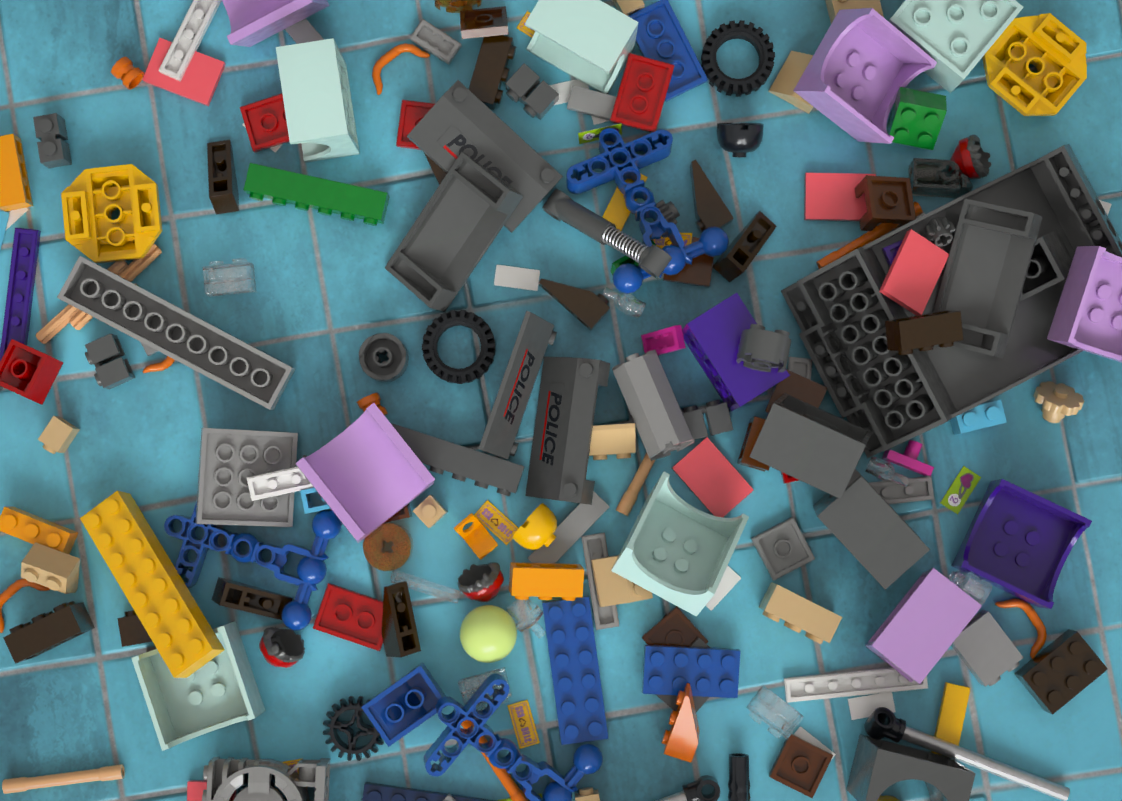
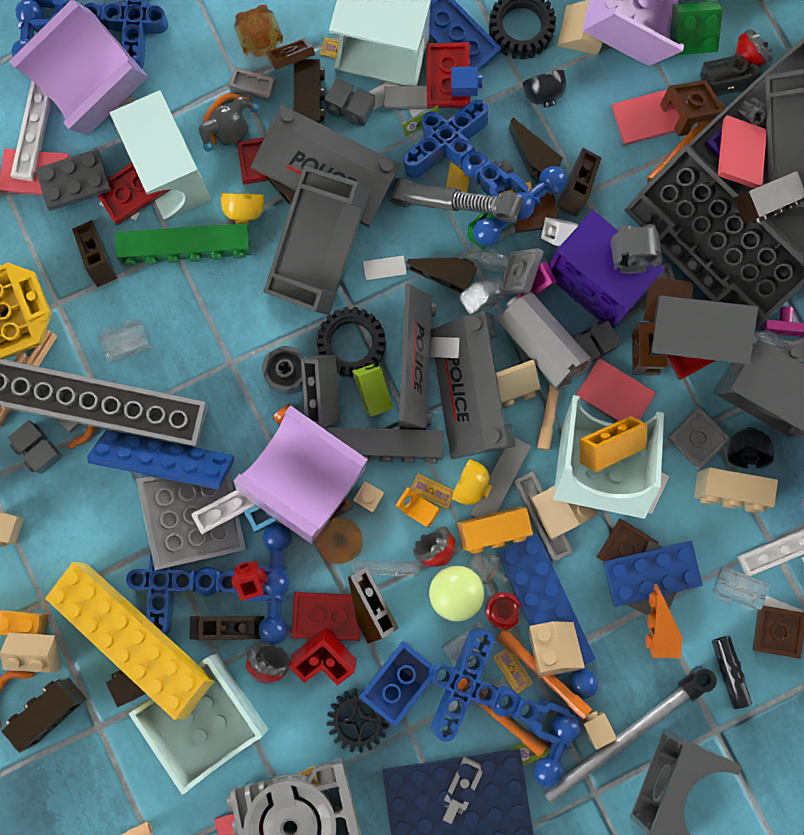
camera: 15 degrees left, 5 degrees down
(222, 93) = (73, 179): none -> dark grey plate
(232, 413) = (161, 459): none -> blue plate
(285, 561) = (249, 580): none -> red brick
(337, 653) = (325, 654): none -> red brick
(388, 172) = (242, 206): none -> yellow cylinder
(397, 78) = (227, 123): none -> dark grey piece
(412, 389) = (320, 389): none -> dark grey brick
(465, 404) = (372, 390): none -> lime hinge
(530, 663) = (502, 610): none -> red hair
(551, 381) = (444, 347): none -> white sticker
(570, 716) = (555, 648): none -> tan slope
(570, 772) = (554, 683): none -> orange piece
(606, 339) = (483, 295): none -> clear brick
(653, 325) = (521, 270): none -> light grey tile
(656, 108) = (465, 81): none -> blue brick
(688, 532) = (613, 443): none -> light orange brick
(705, 294) = (557, 230): none -> white brick
(830, 573) = (751, 448): none -> black cylinder

